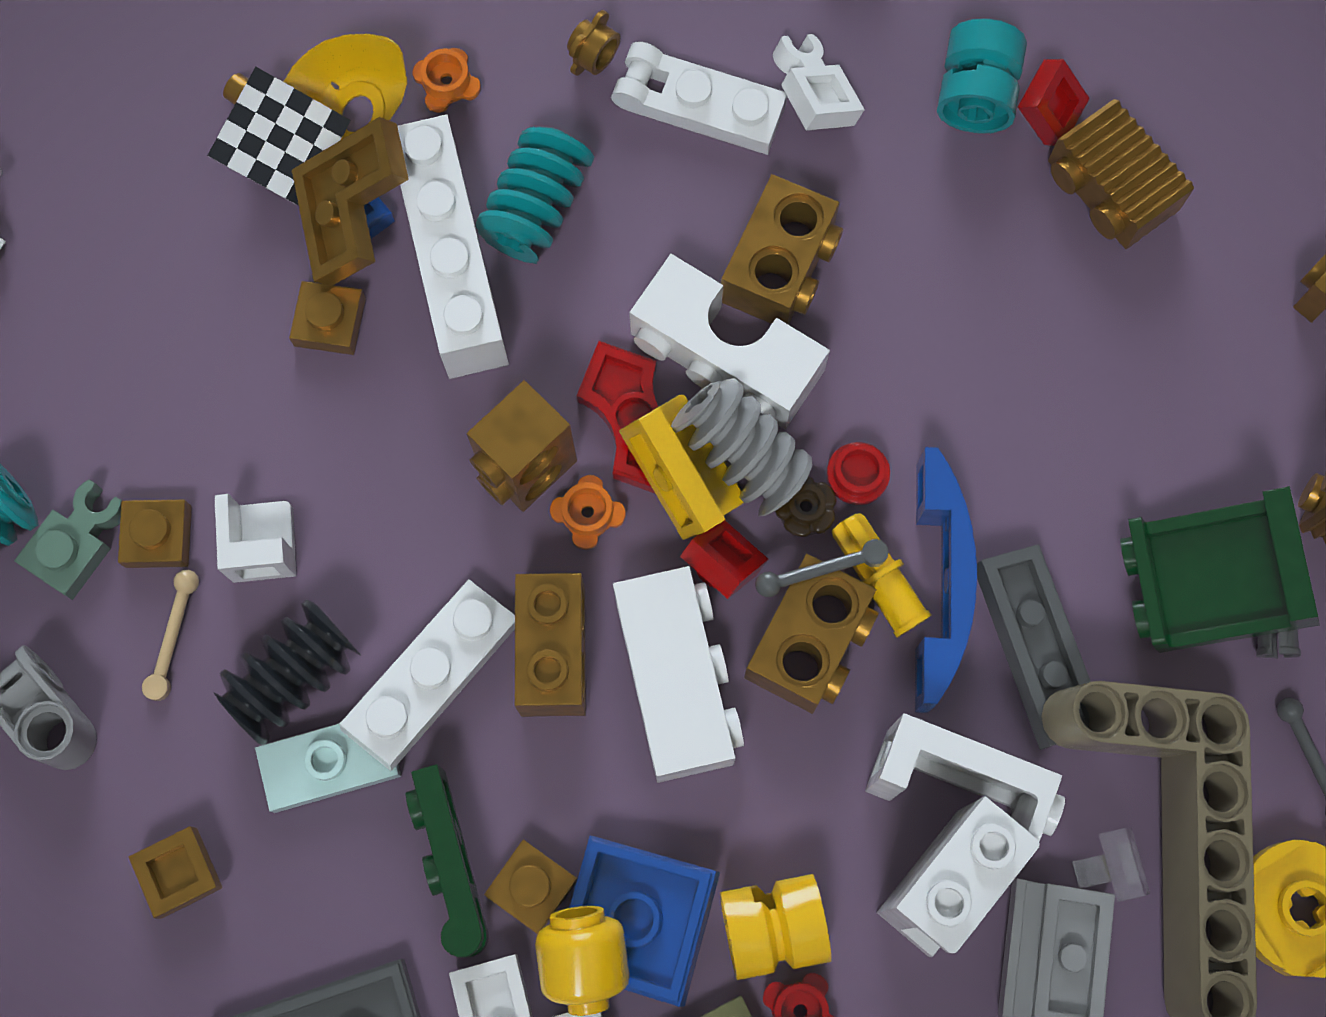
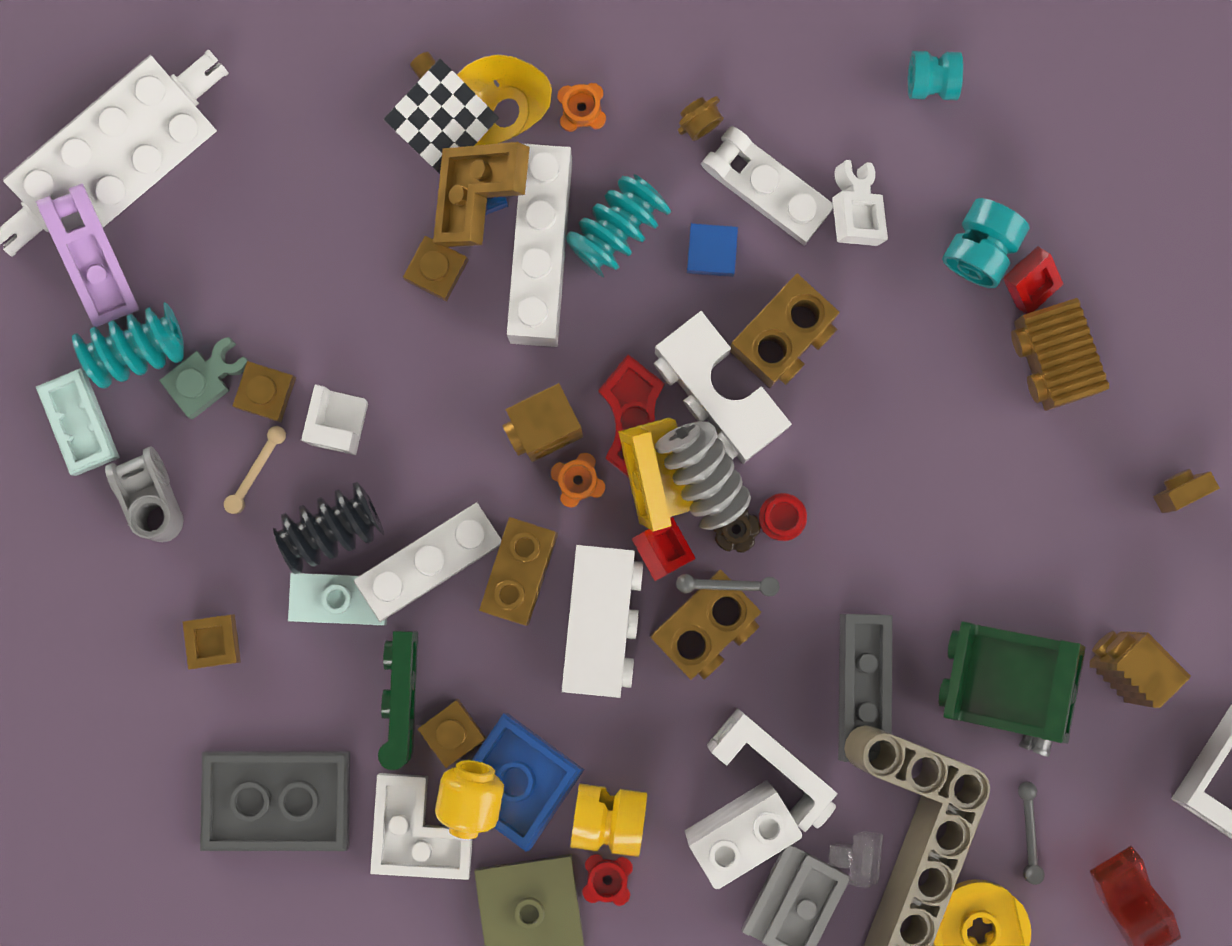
camera: 20 degrees right, 10 degrees up
(659, 191) = (712, 250): none -> blue tile
(893, 592) = (774, 608): yellow axle -> none
(942, 504) = (832, 559): blue slope -> none

